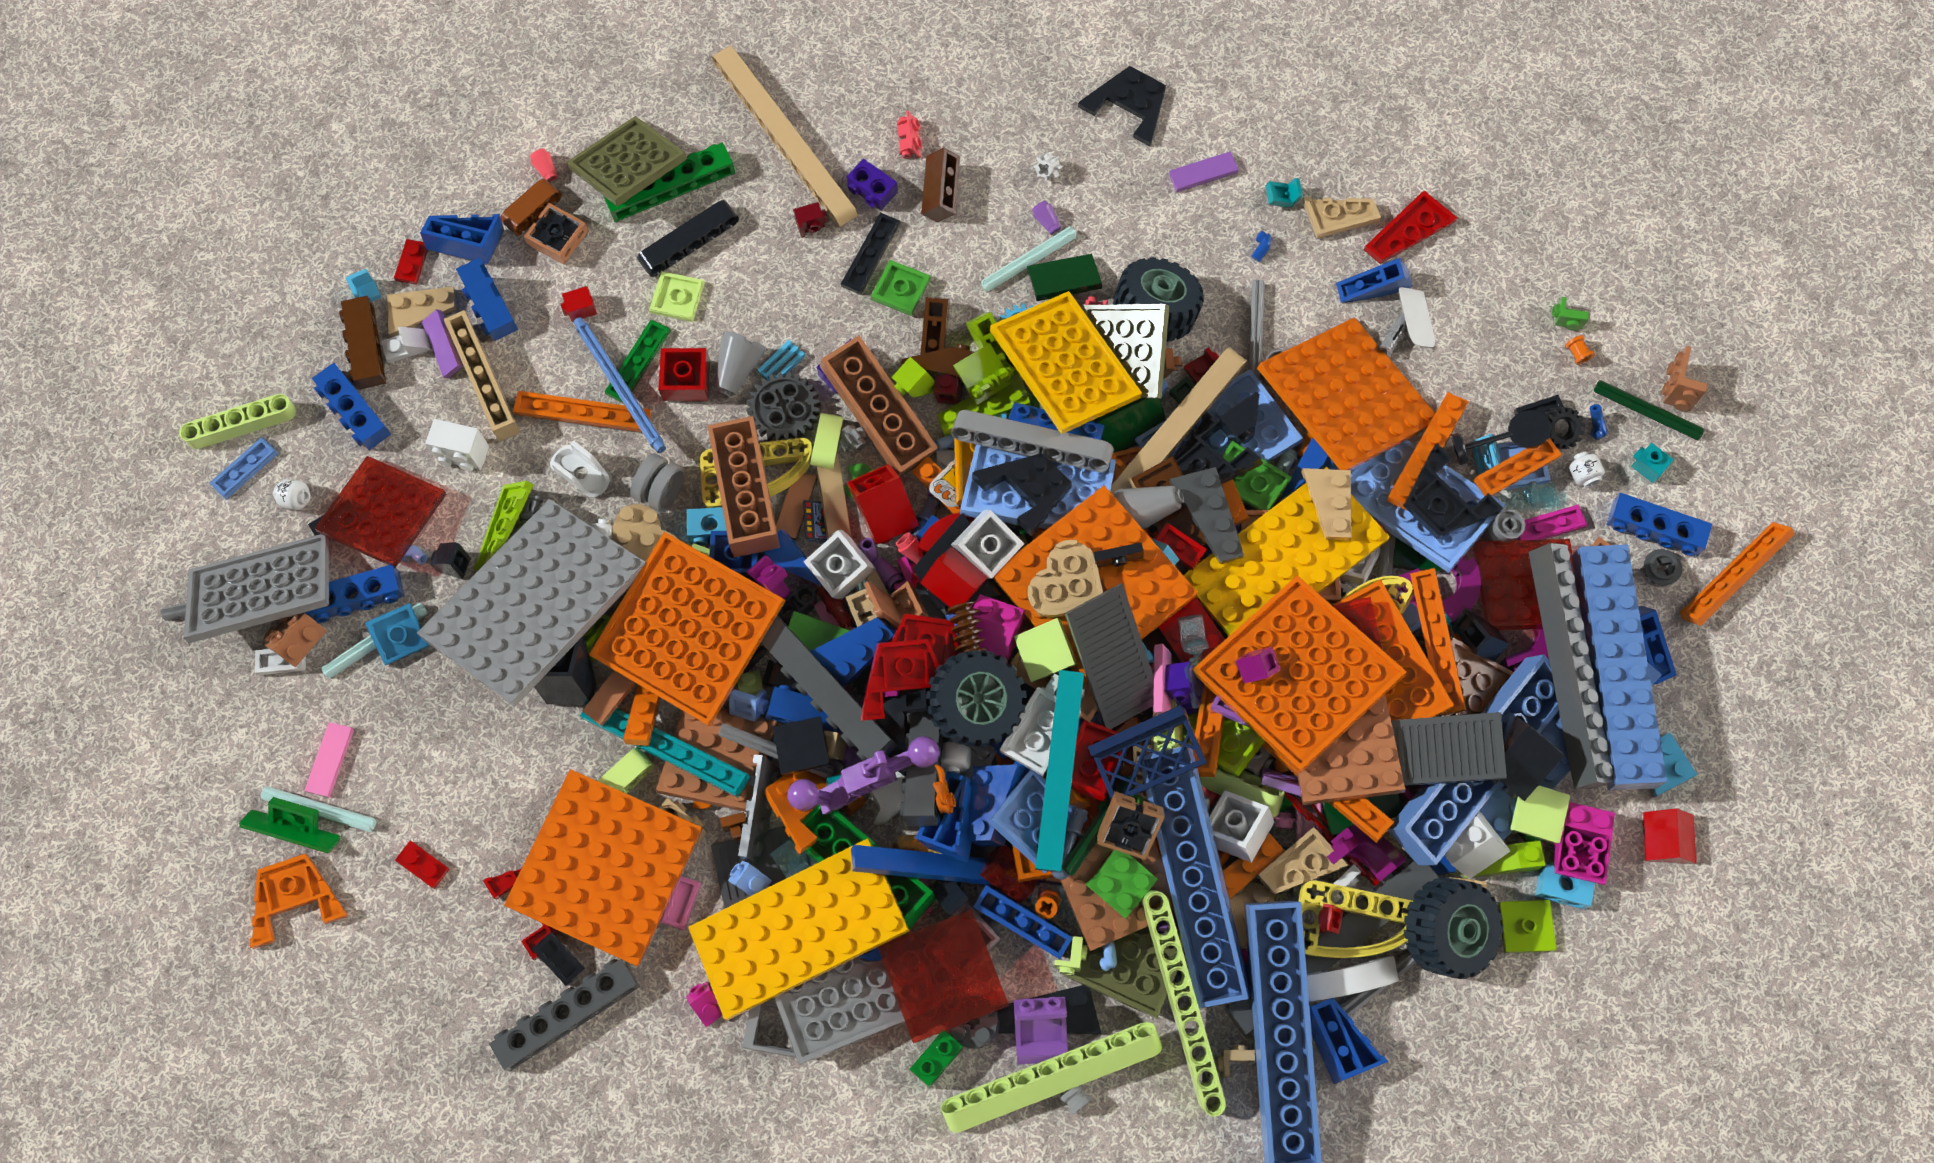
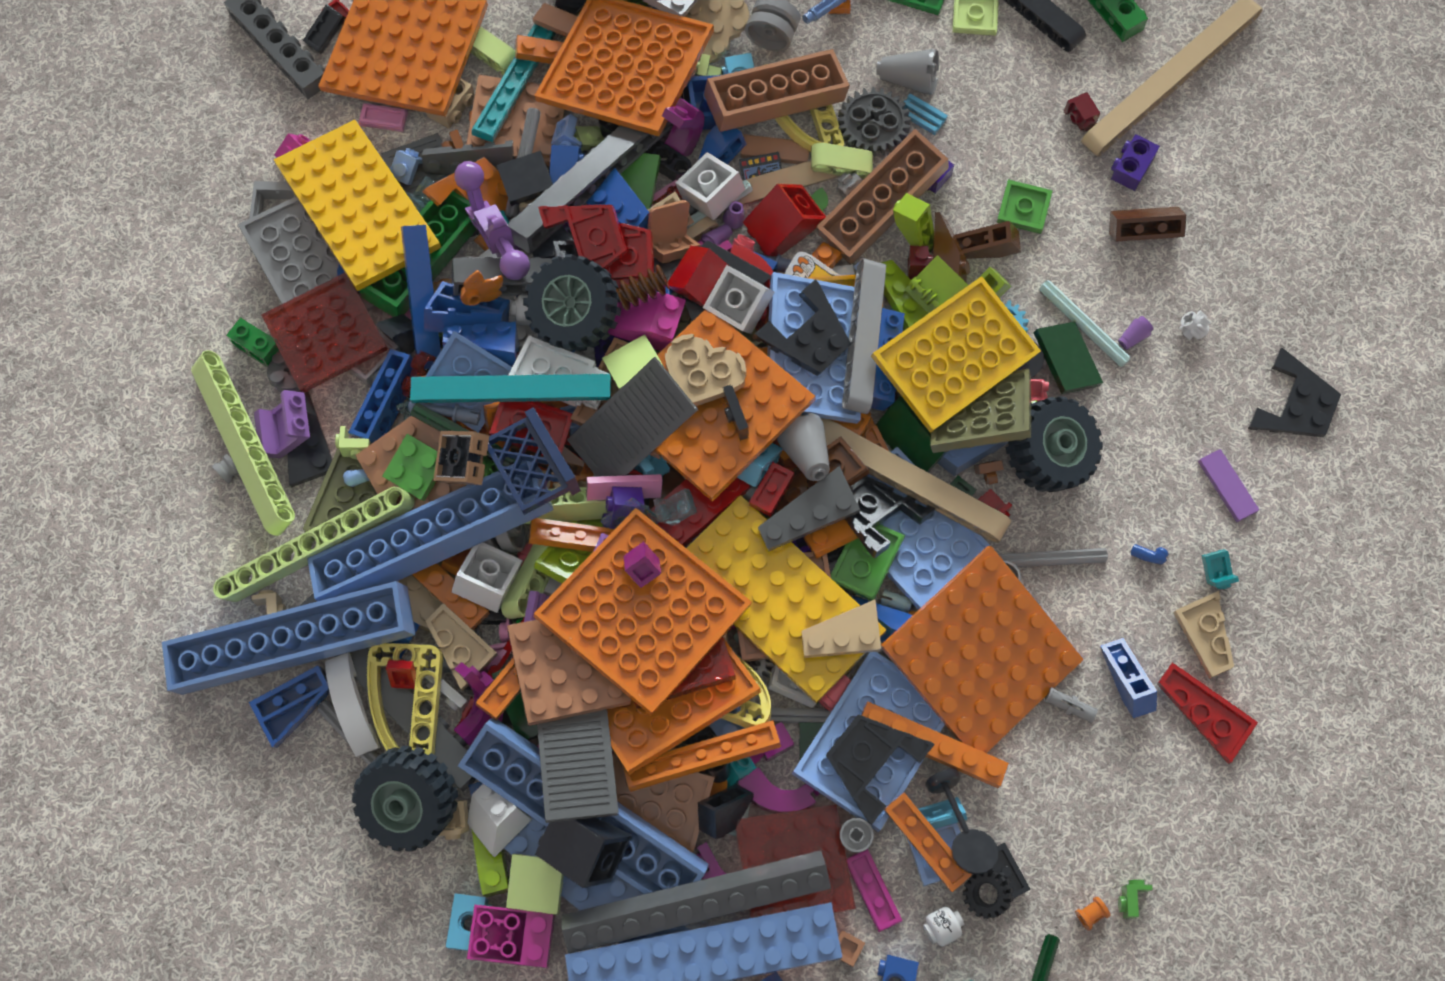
camera: 80 degrees right, 0 degrees up
(684, 374) = (890, 28): red brick -> none
(870, 253) = (1059, 175): black tile -> none
(908, 128) = (1205, 191): coral hinge -> none
(1047, 911) = (397, 414): orange bush -> none
(1241, 420) = (930, 543): black slope -> none
(1417, 317) = (1097, 727): white sticker -> none
(1527, 926) = (425, 887): lime plate -> none
(1541, 495) = (906, 878): clear light blue bracket -> none
(1600, 429) = (1008, 939): blue arm -> none

